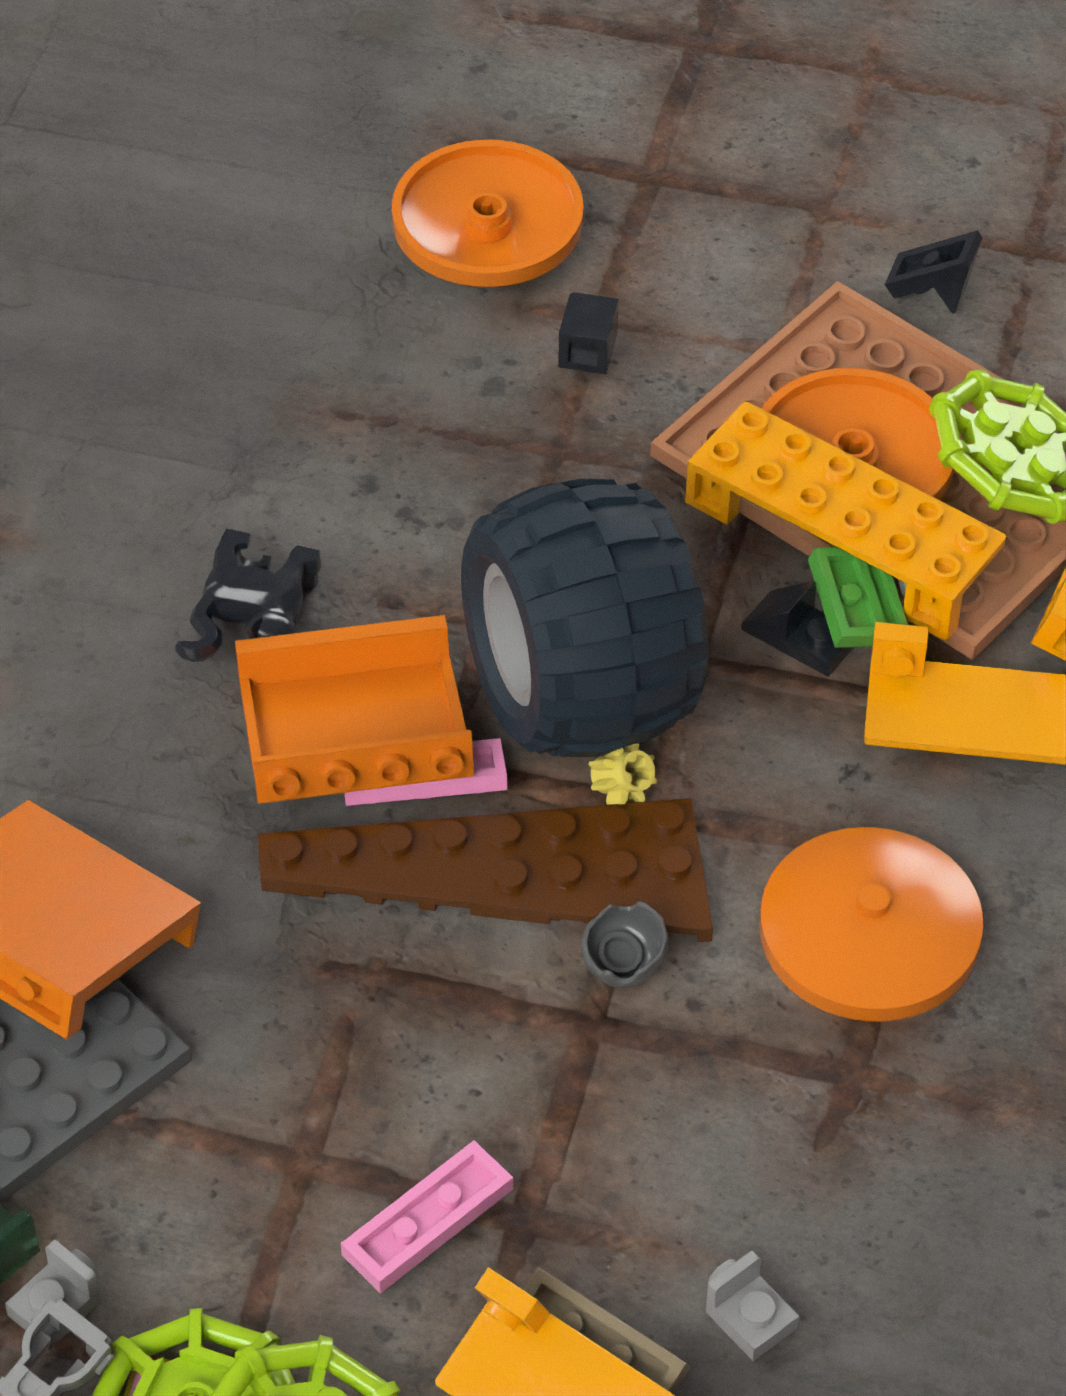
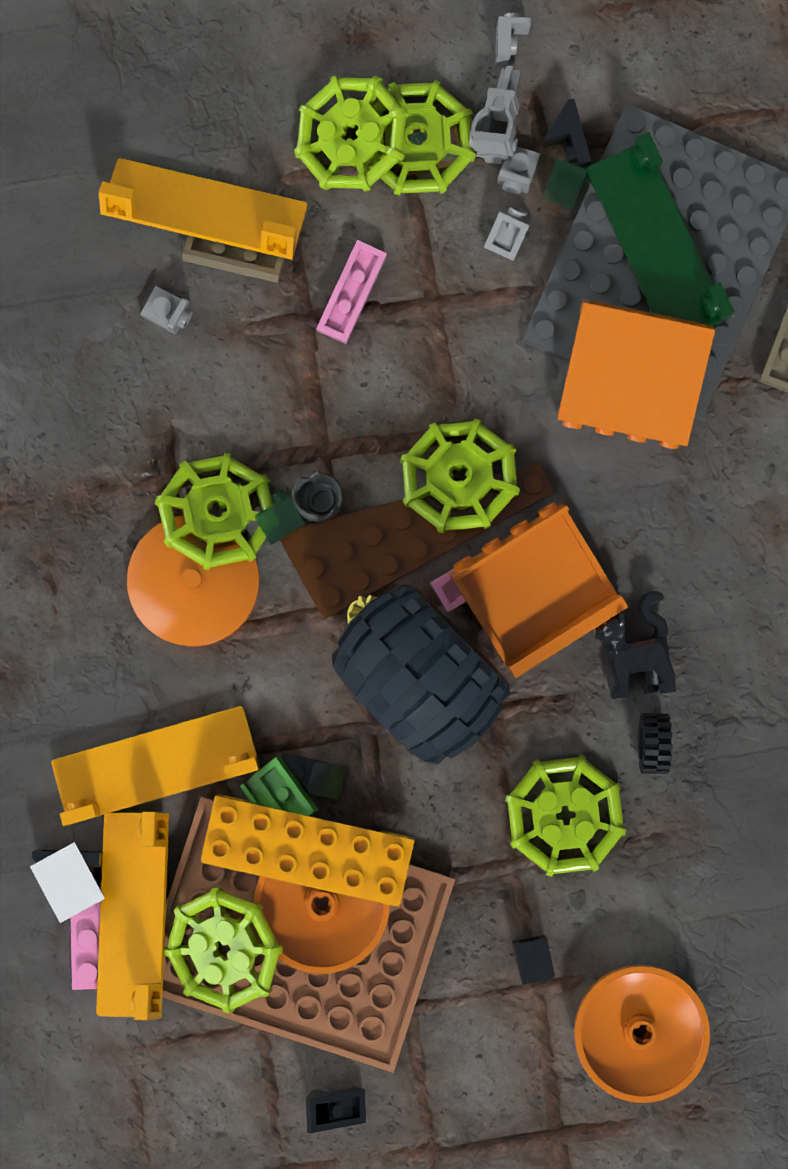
camera: 155 degrees right, 35 degrees up
(121, 1204) = (508, 231): none -> light grey bracket
(290, 483) = (655, 743): none -> black tyre
(384, 923) = (459, 493): none -> lime plate
(448, 501) = (554, 831): none -> lime plate
(697, 931) = (279, 518): none -> clear green panel
(799, 1010) = (200, 500): none -> lime plate

